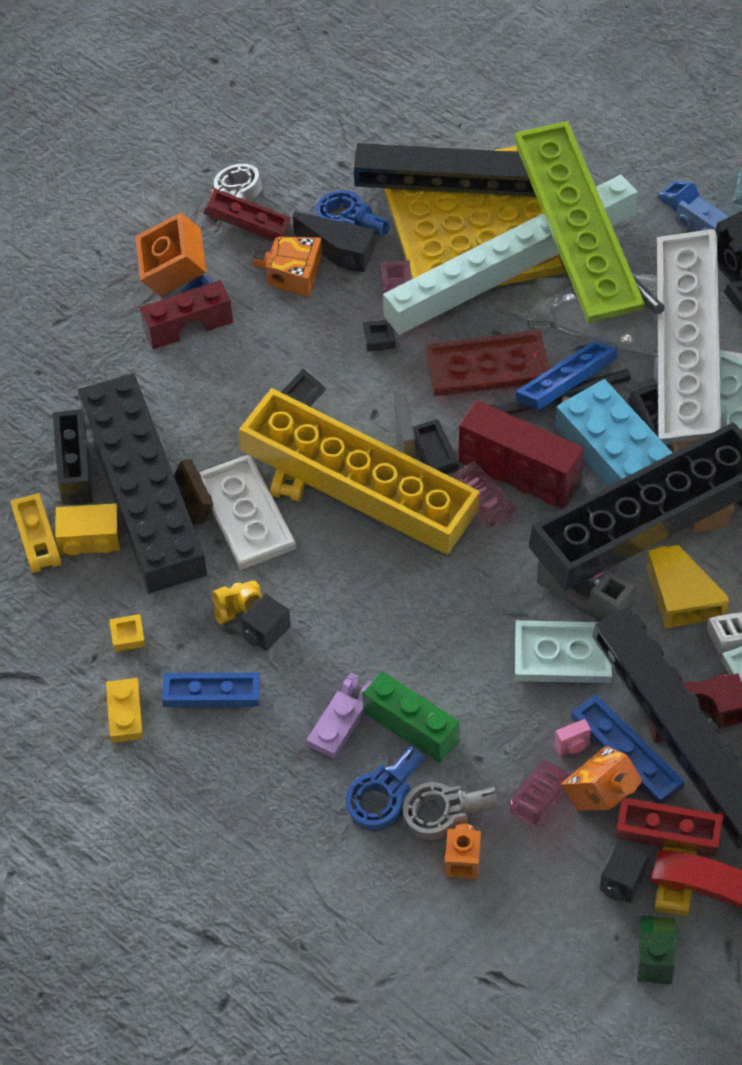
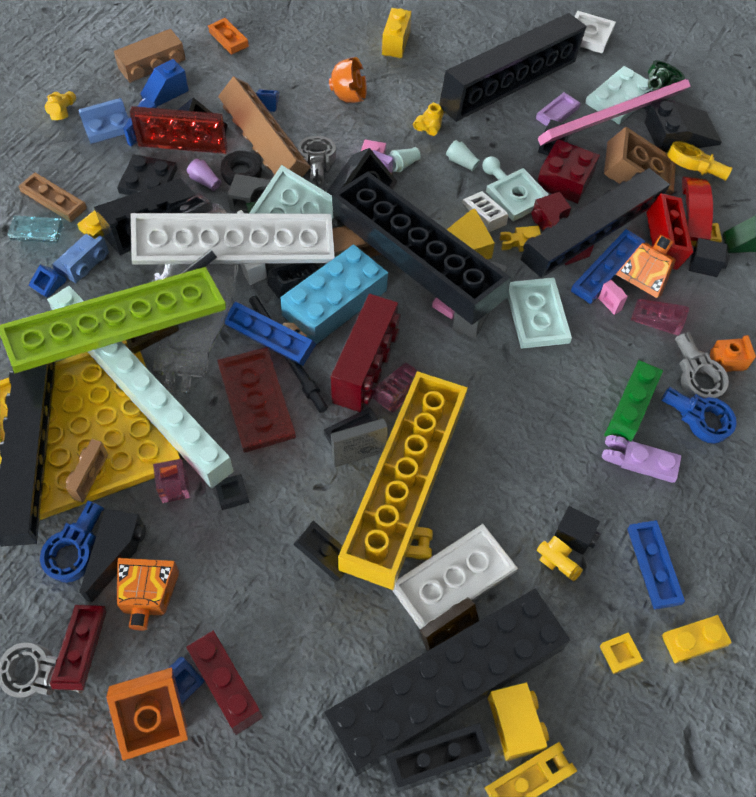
camera: 105 degrees left, 5 degrees up
(417, 215) = (90, 463): none -> medium nougat plate
(688, 664) = (518, 238): none -> yellow plate

